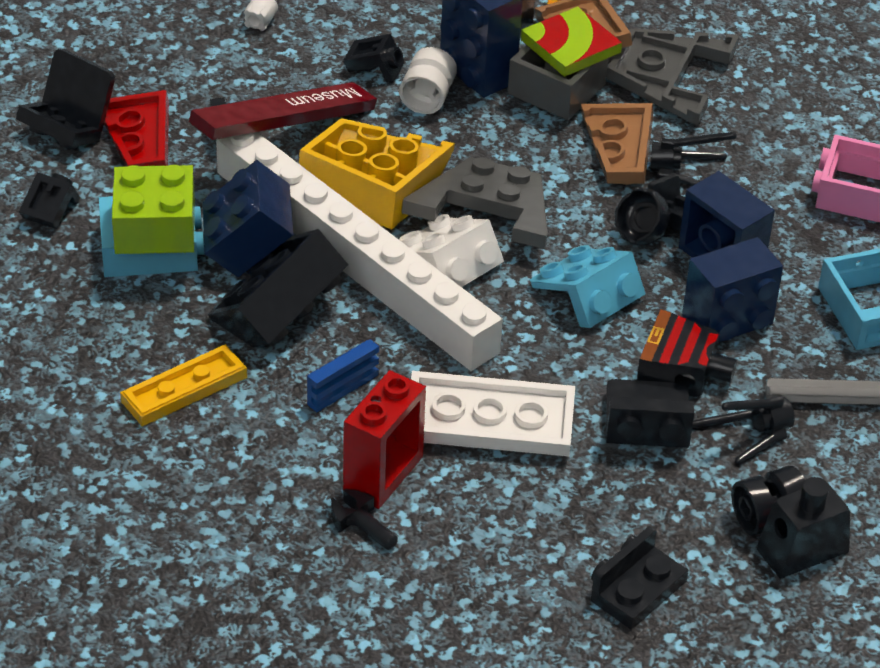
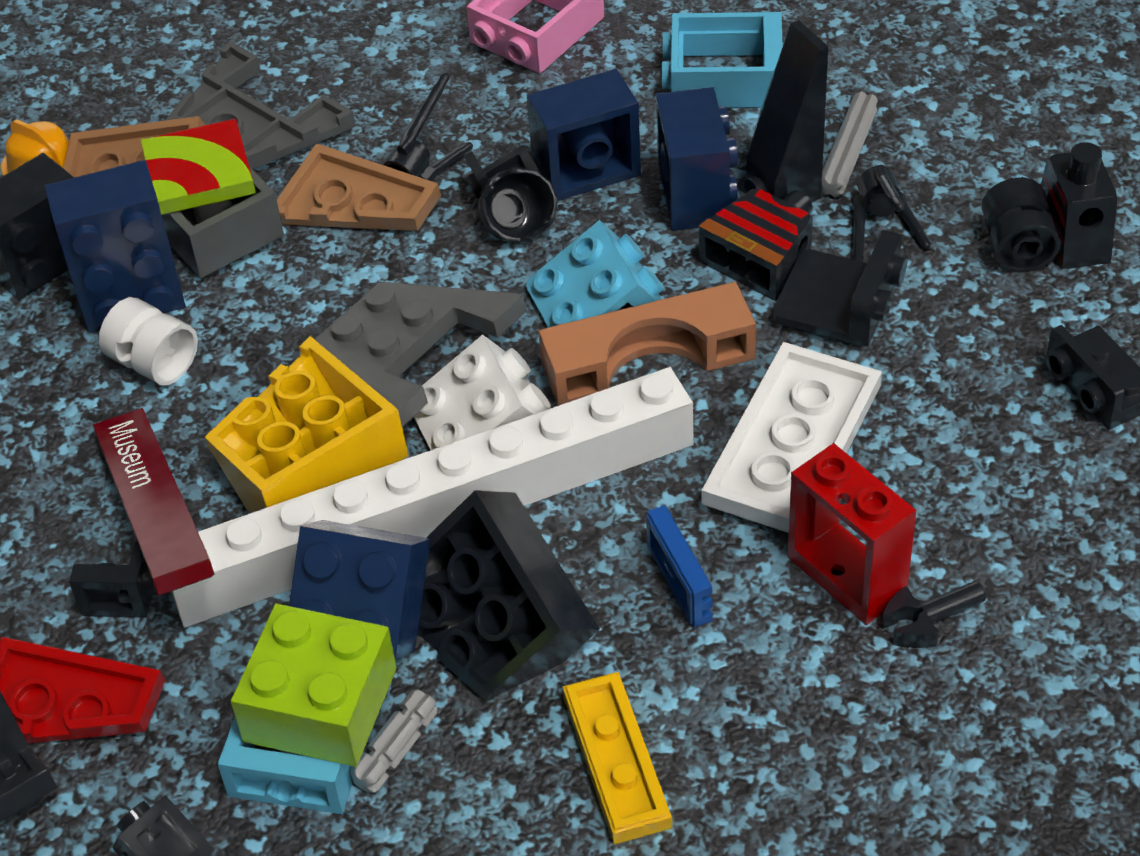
camera: 65 degrees left, 5 degrees up
(158, 280) = (393, 741): none -> light grey axle
(375, 52) = (53, 388): black bracket -> none
(515, 289) = (702, 325): none -> nougat arch
(775, 326) = (791, 121): none -> black wedge

